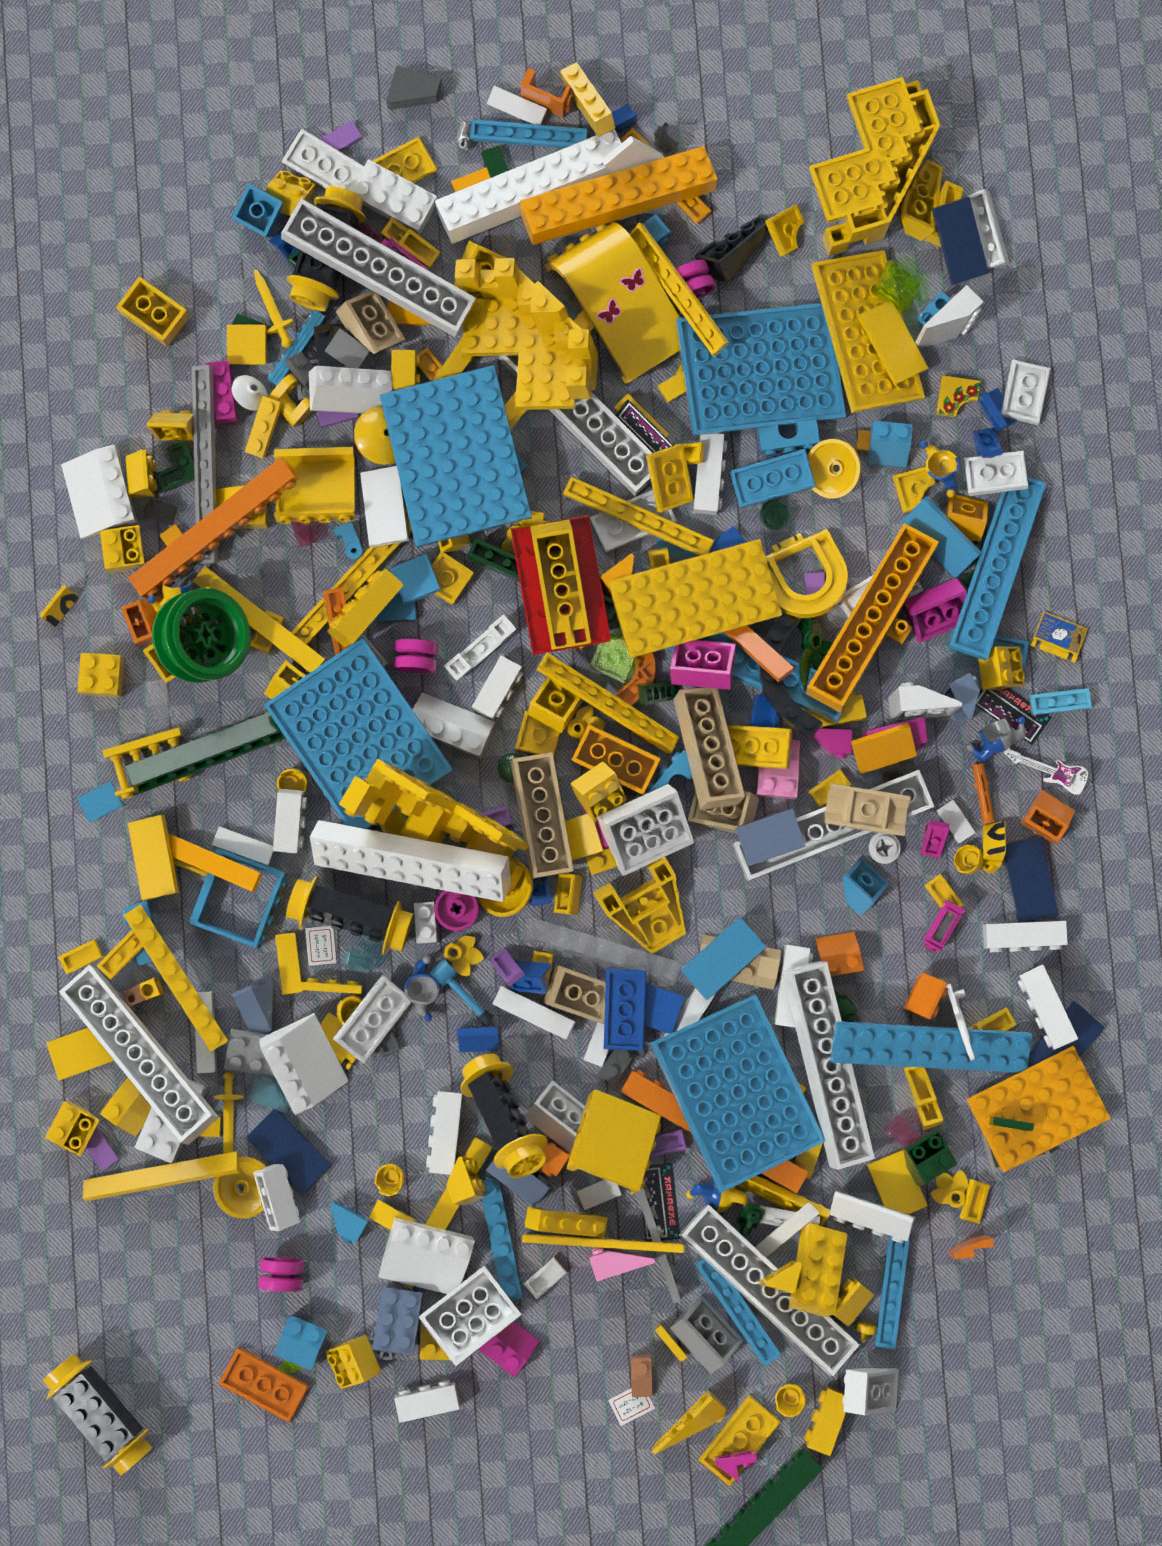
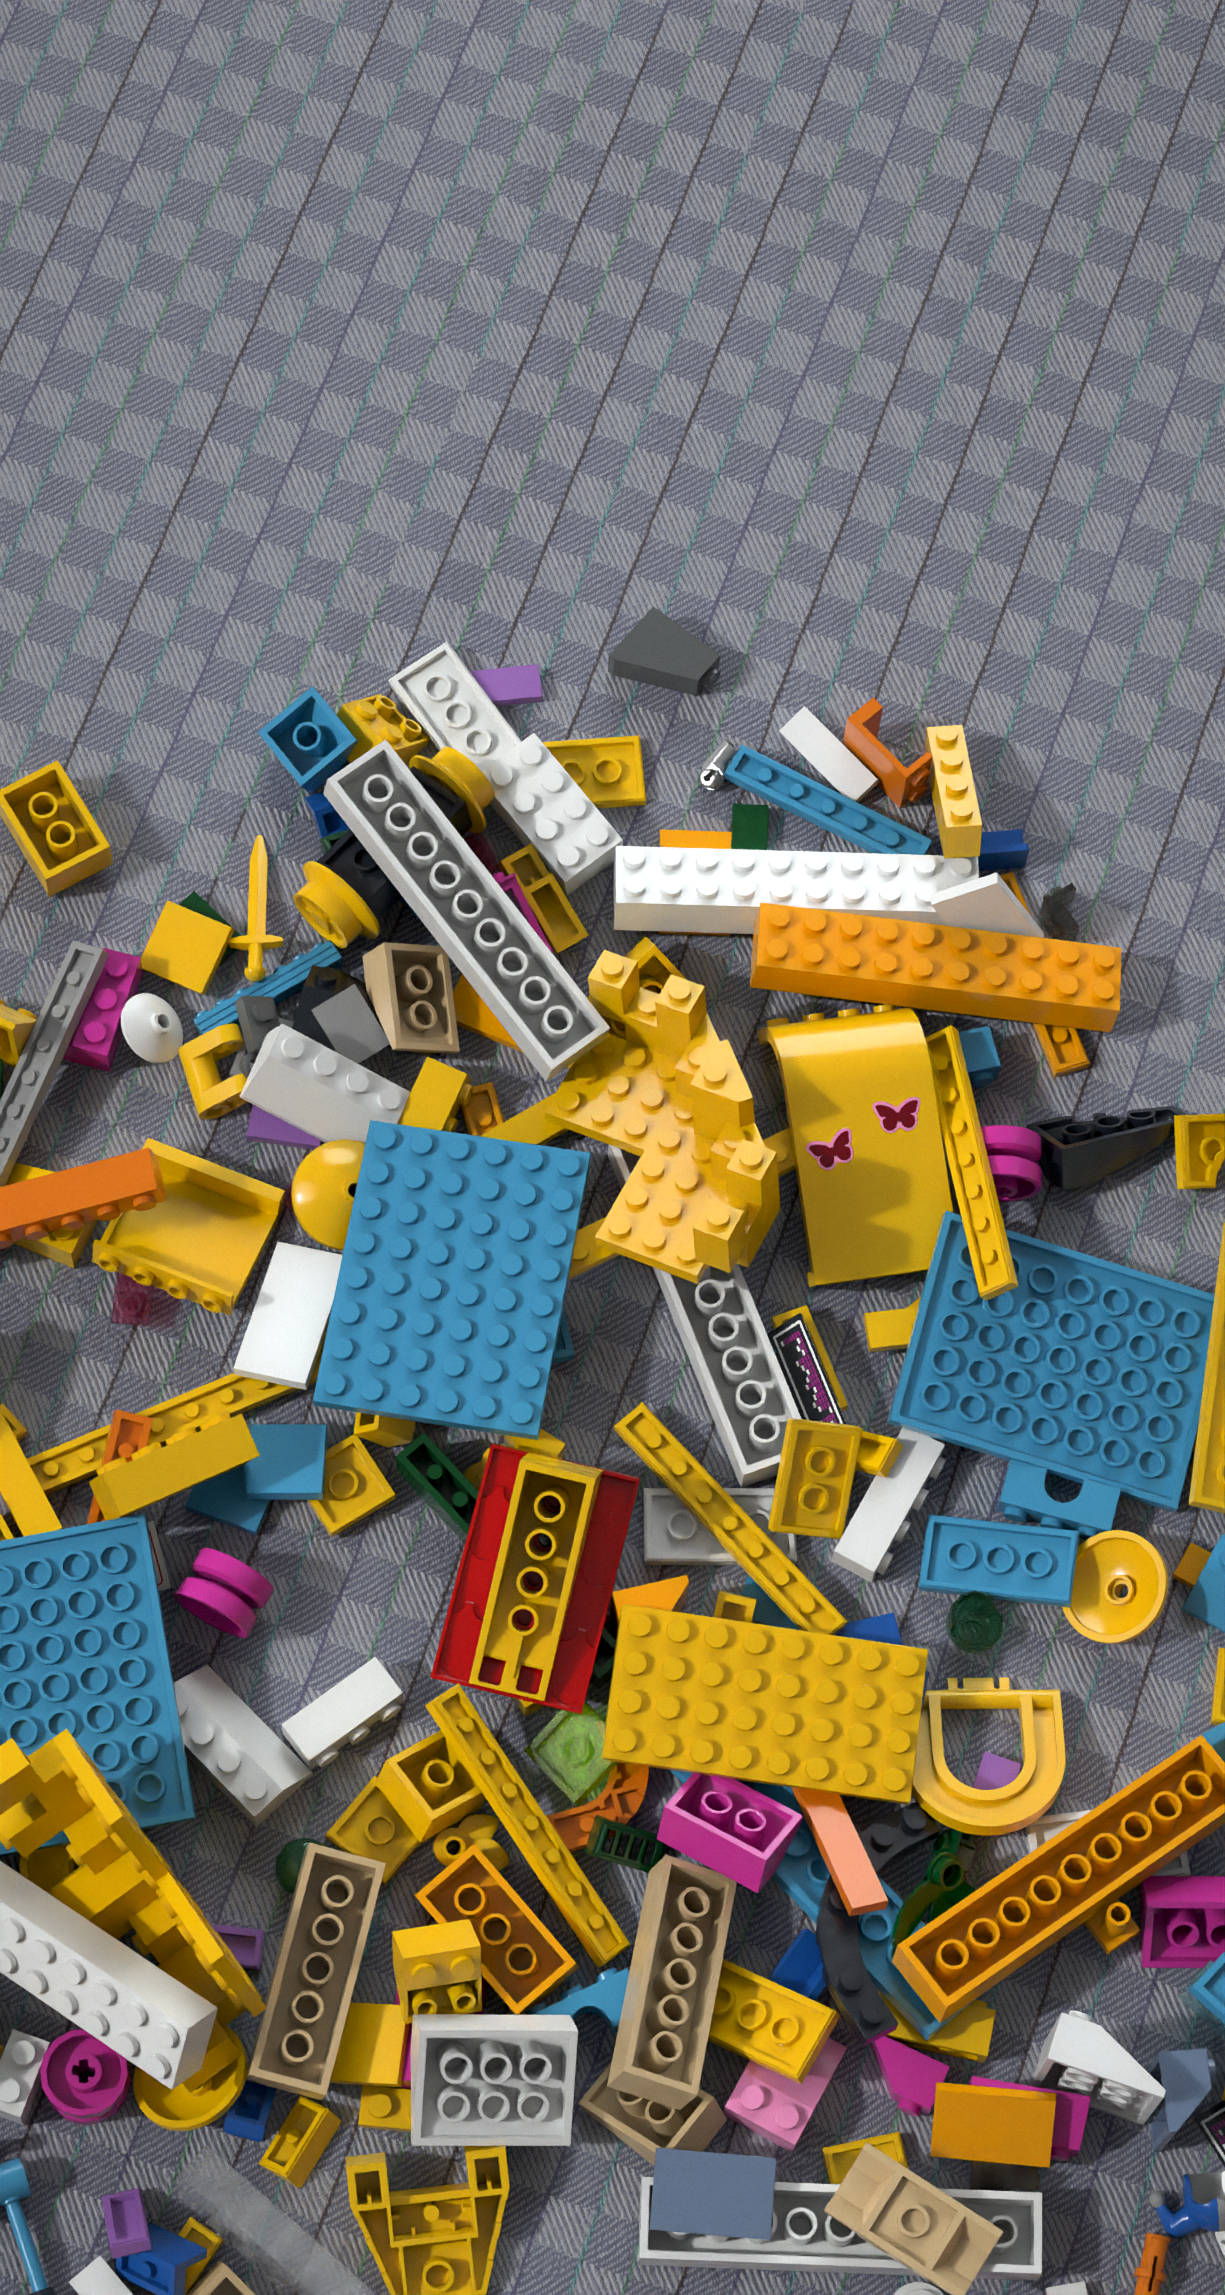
camera: 20 degrees right, 15 degrees down
(263, 427) = (147, 1094): yellow plate -> none
(353, 547) = (207, 1337): dark azure leg -> none
(466, 955) = (65, 2170): yellow plate -> none
(480, 648) = (346, 1632): white slope -> none

